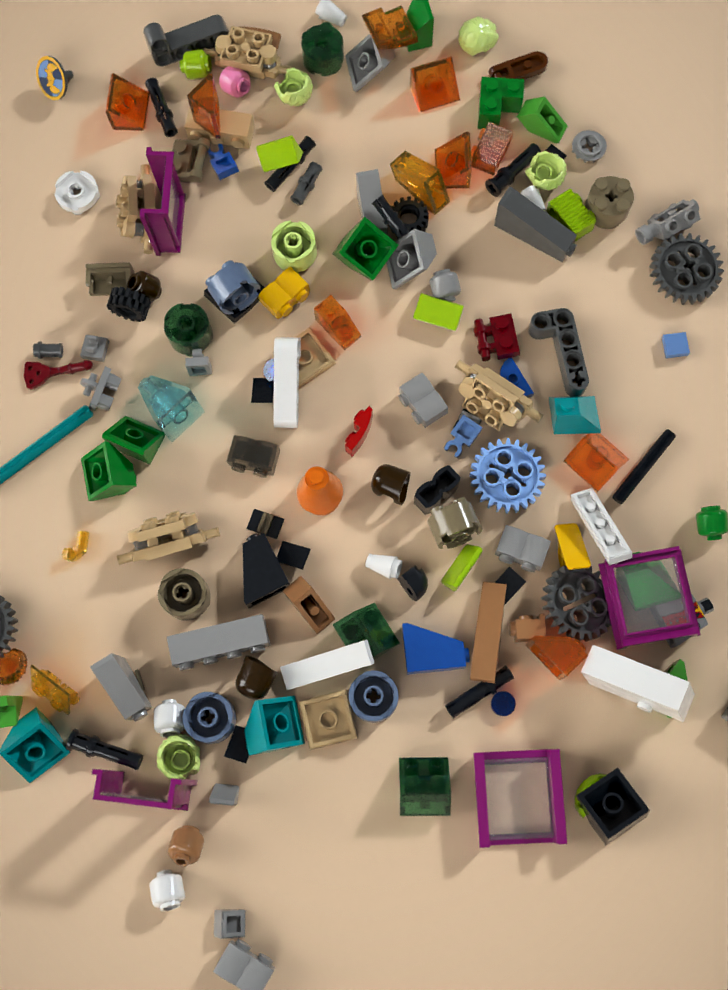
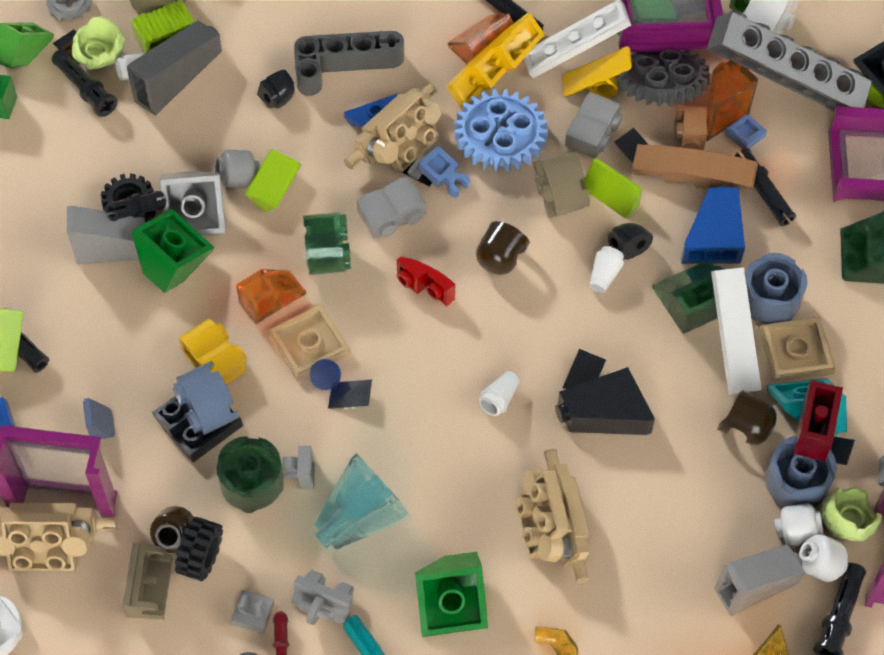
camera: 90 degrees left, 15 degrees down
(134, 439) = (403, 553): green slope -> none
(141, 735) = (823, 558): none -> white head
(171, 594) = (635, 496): dark tan brick -> none
(218, 641) = (700, 459): light grey brick -> none
(228, 228) = (98, 419): none -> sand blue slope
(232, 723) = (818, 420): none -> dark red brick
(253, 456) = (446, 406): clear smoke brick -> none
(265, 523) = (537, 406): black piece -> none
(268, 493) = (498, 394): none -> white cone
(286, 381) = (345, 348): white beam -> none
(294, 246) = (147, 333): yellowish green brick -> none
(306, 183) = (47, 318): dark grey pin -> none
(309, 604) = (651, 354): medium nougat slope -> none
(319, 491) = (501, 330): orange cone -> none
(378, 354) = (325, 243): none -> clear green brick
(421, 181) = (76, 179): clear yellow slope -> none
(433, 492) = (515, 199): black brick -> none
(455, 162) = (60, 139): clear orange slope -> none
(491, 148) = (48, 100): clear orange brick -> none
(503, 703) = (779, 167): clear blue tile -> none
(504, 337) = (317, 115): dark red plate -> none
(524, 305) = (276, 89): none -> black piece
(536, 677) = (746, 132): none -> medium blue tile
(574, 415) = (430, 56): teal slope -> none
(575, 464) = (496, 59): none -> yellow slope
(575, 762) = (799, 77): none -> dark grey brick

